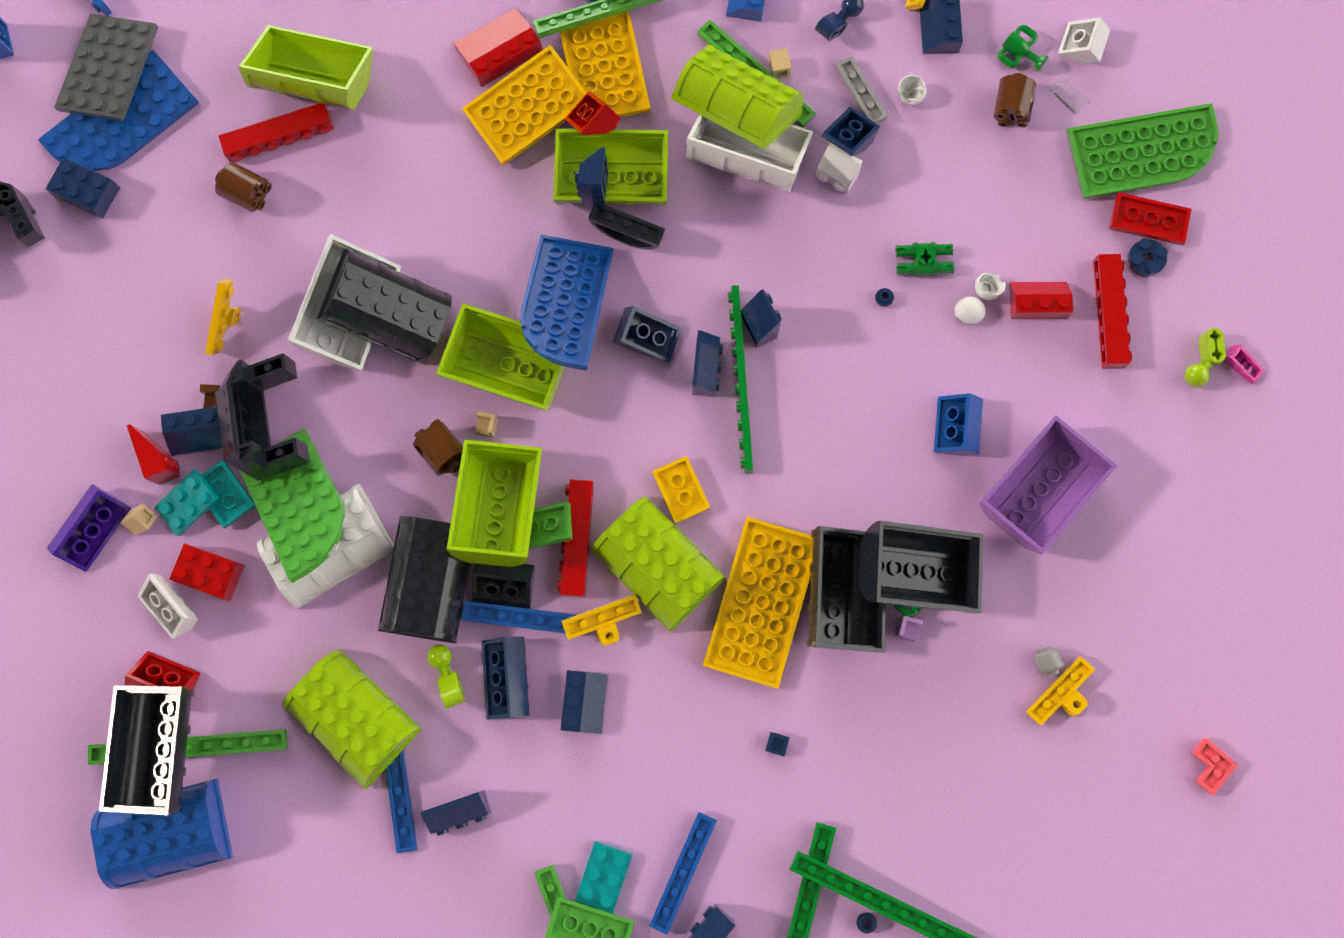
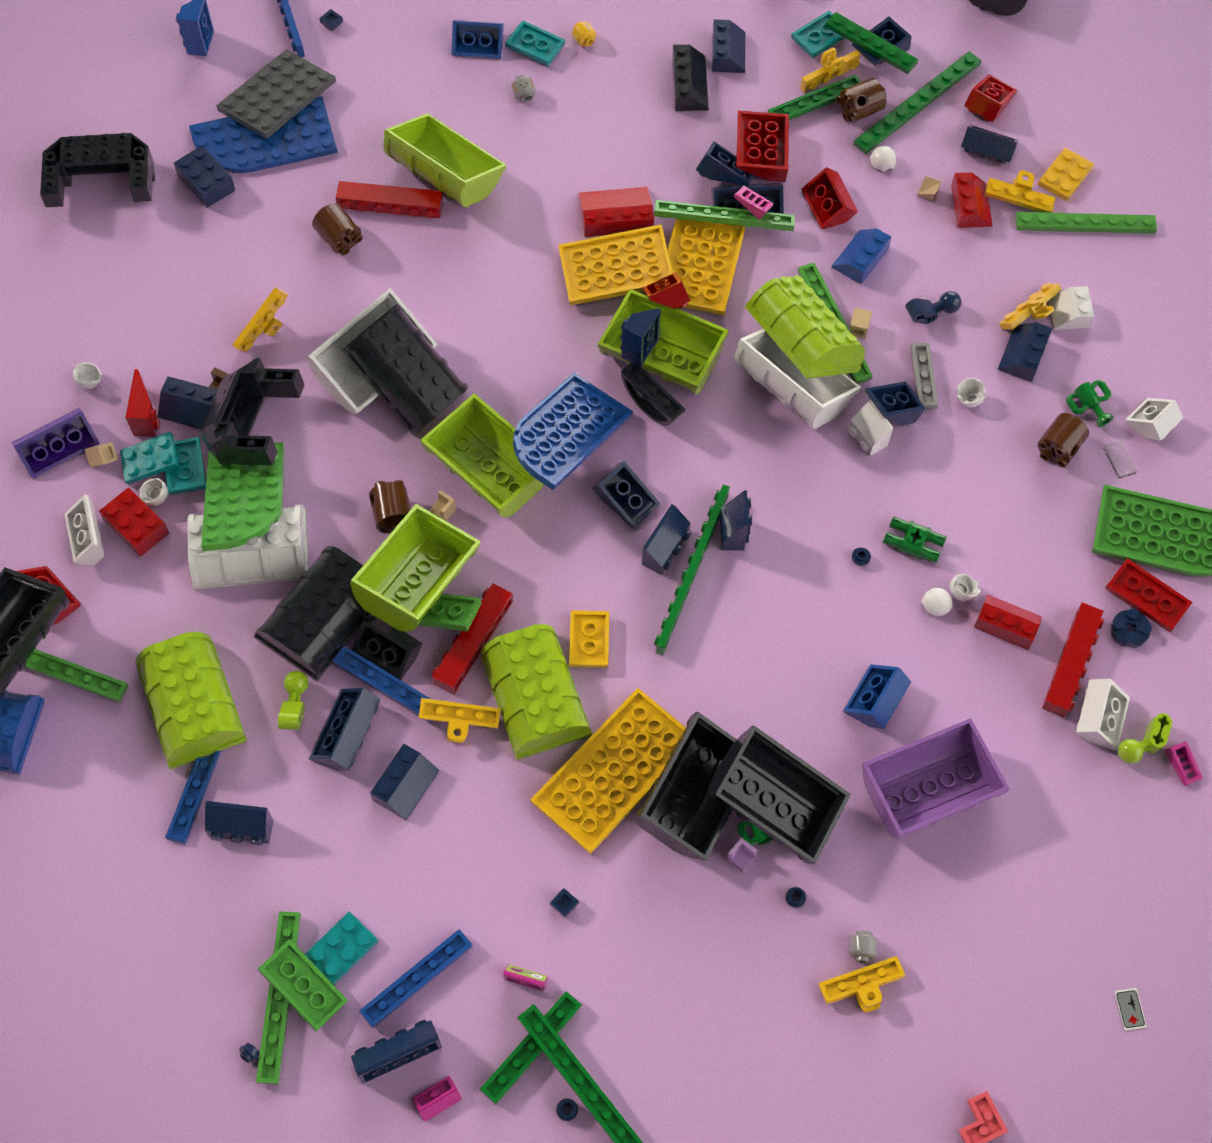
camera: 20 degrees right, 15 degrees down
(81, 447) = (87, 375): none -> white hair
(209, 534) = (153, 492): none -> white hair
(775, 825) = (525, 977): none -> dark pink slope
(977, 643) = (795, 891): none -> dark blue plate
(1158, 350) = (1103, 713): none -> white slope
(1289, 606) = (1130, 1009): none -> sticker

